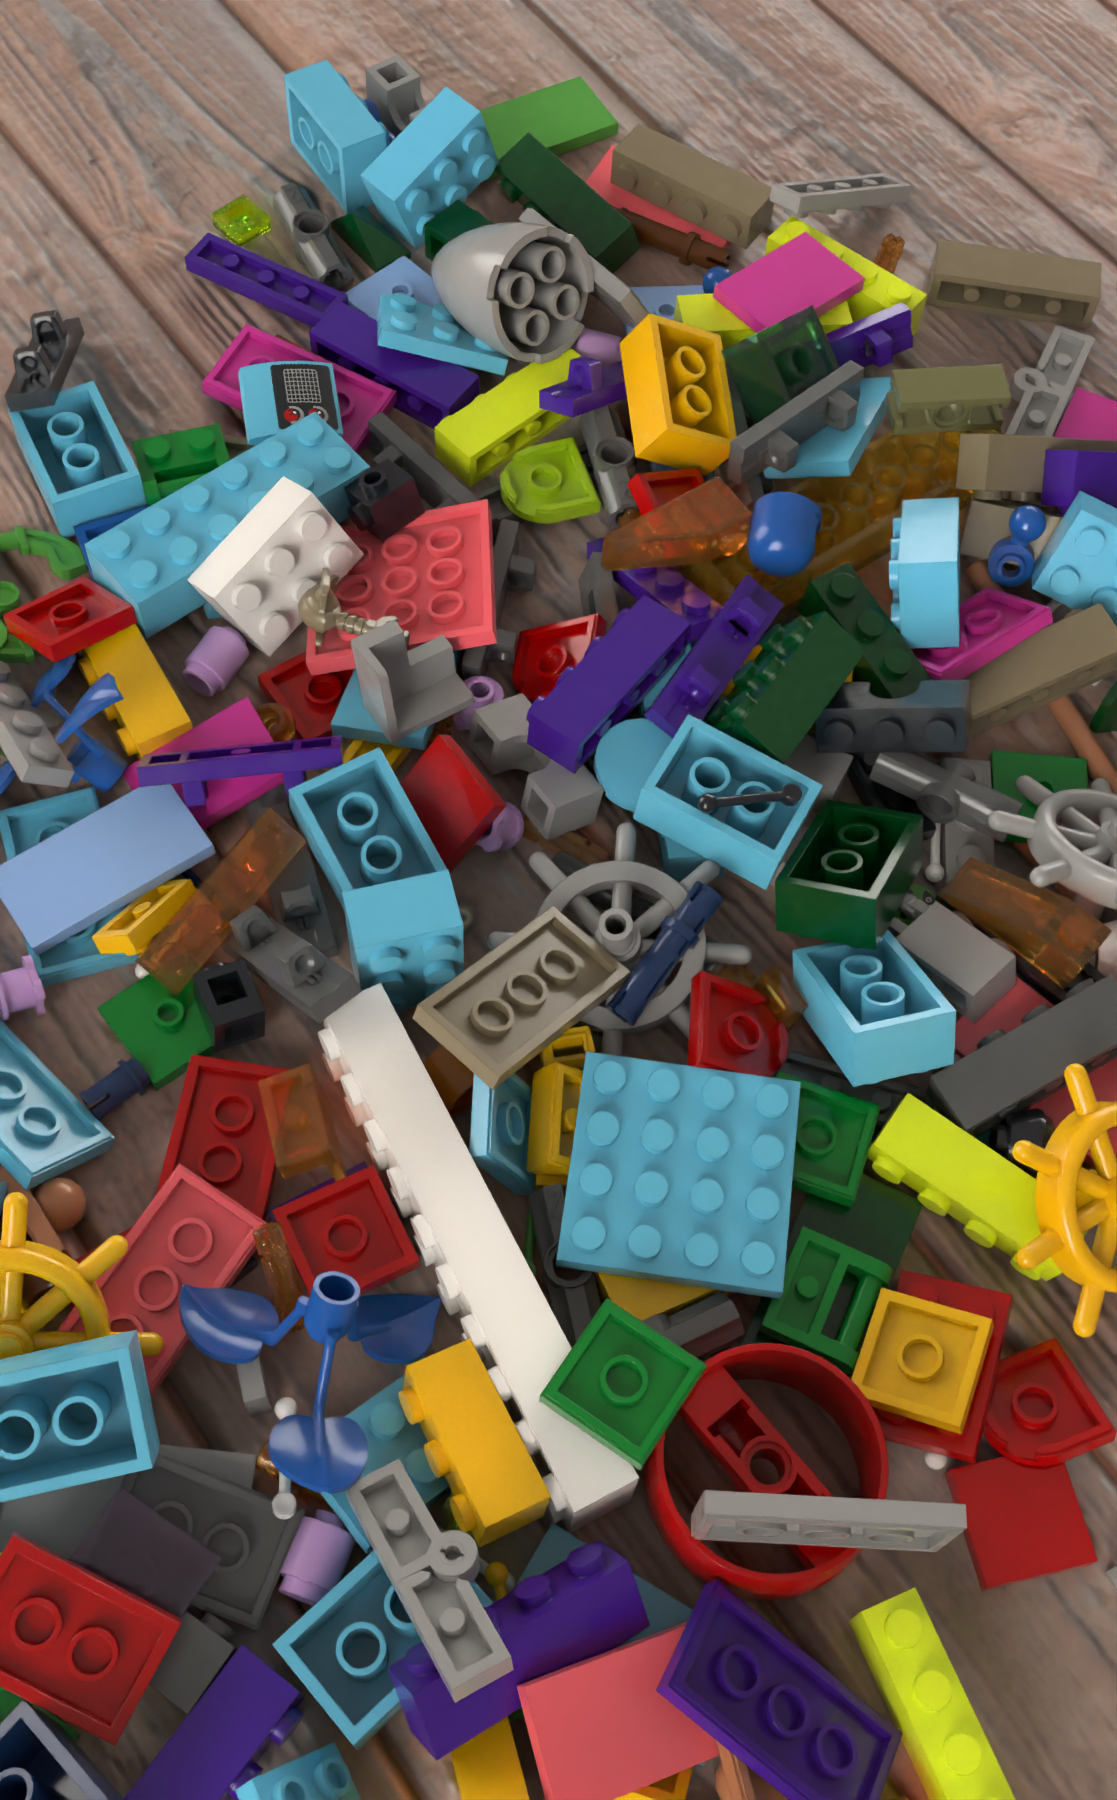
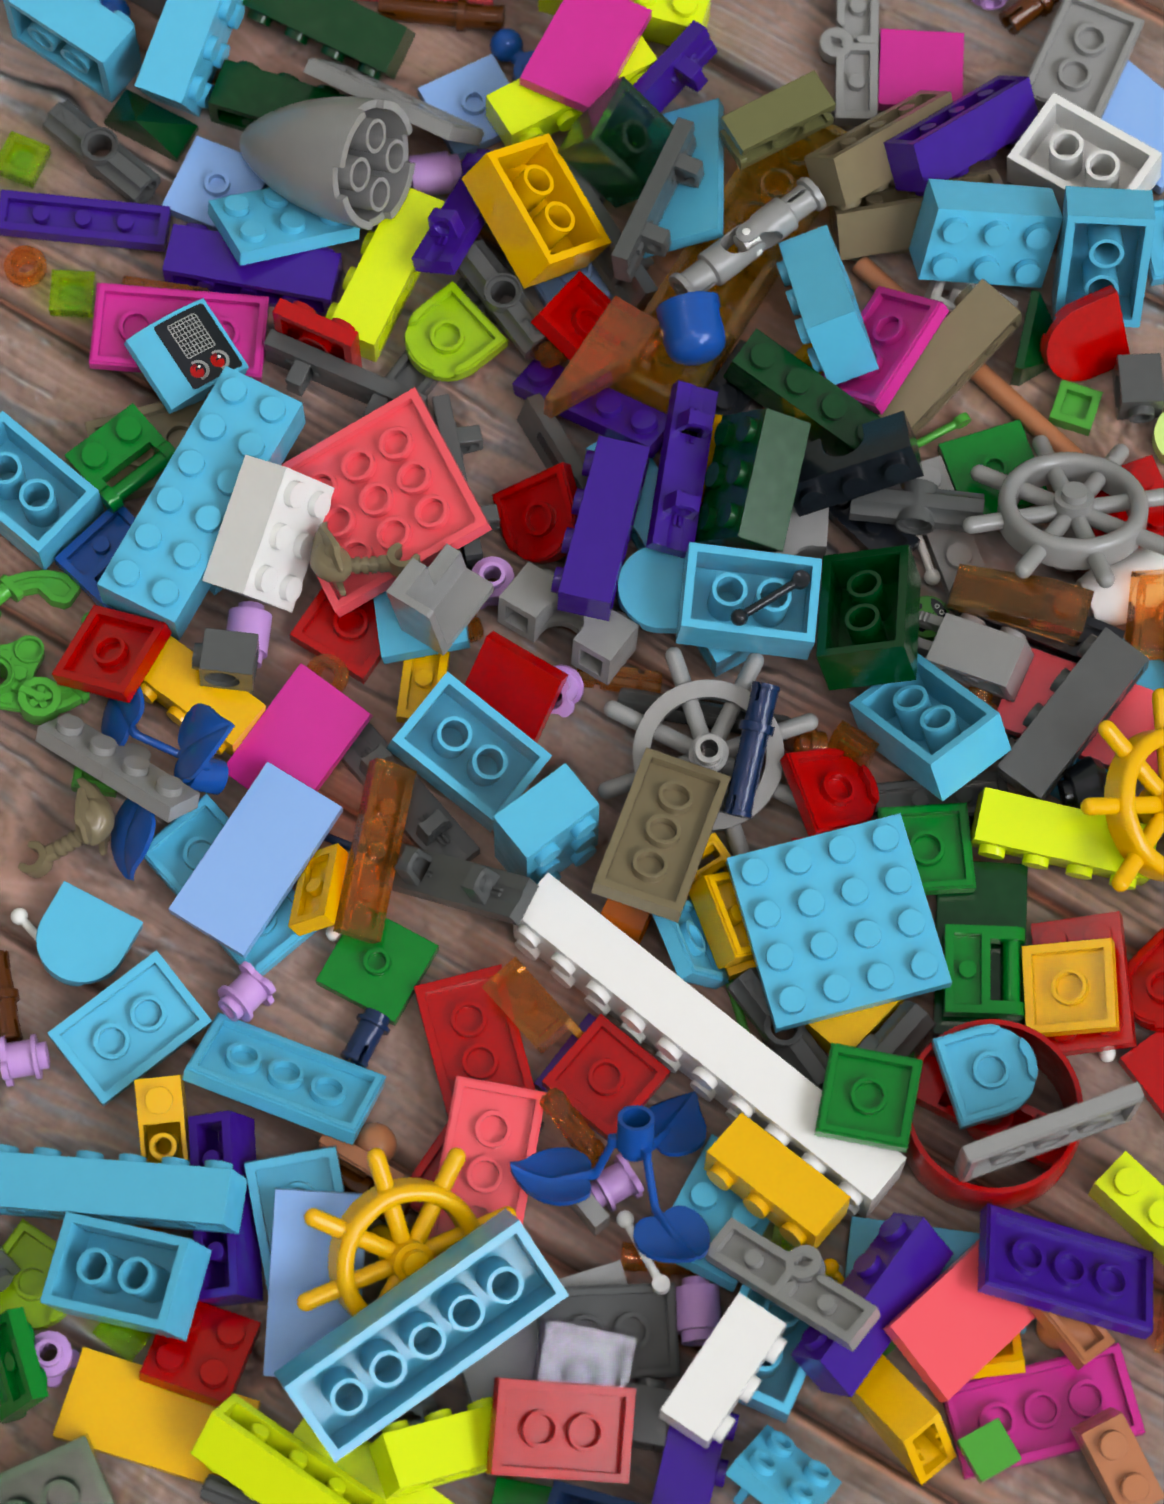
camera: 20 degrees left, 10 degrees up
(173, 660) = (227, 659): none -> dark grey brick
(195, 298) = (25, 255): none -> clear orange plate
(197, 766) = (334, 727): dark purple hinge -> none
(219, 329) = (72, 293): none -> clear neon green plate
(229, 1004) = (426, 918): black brick -> none
(292, 1363) = (616, 1184): none -> lavender brick
(292, 1654) = (724, 1372): none -> white brick
(383, 500) = (325, 426): black brick -> none
(420, 421) = (331, 336): none -> red plate
(778, 1414) = (985, 1072): none -> medium azure tile
(867, 487) = (752, 238): none -> light grey piece
(1022, 741) = (958, 422): none -> bright green hinge
(1025, 525) = (892, 223): blue plate -> none

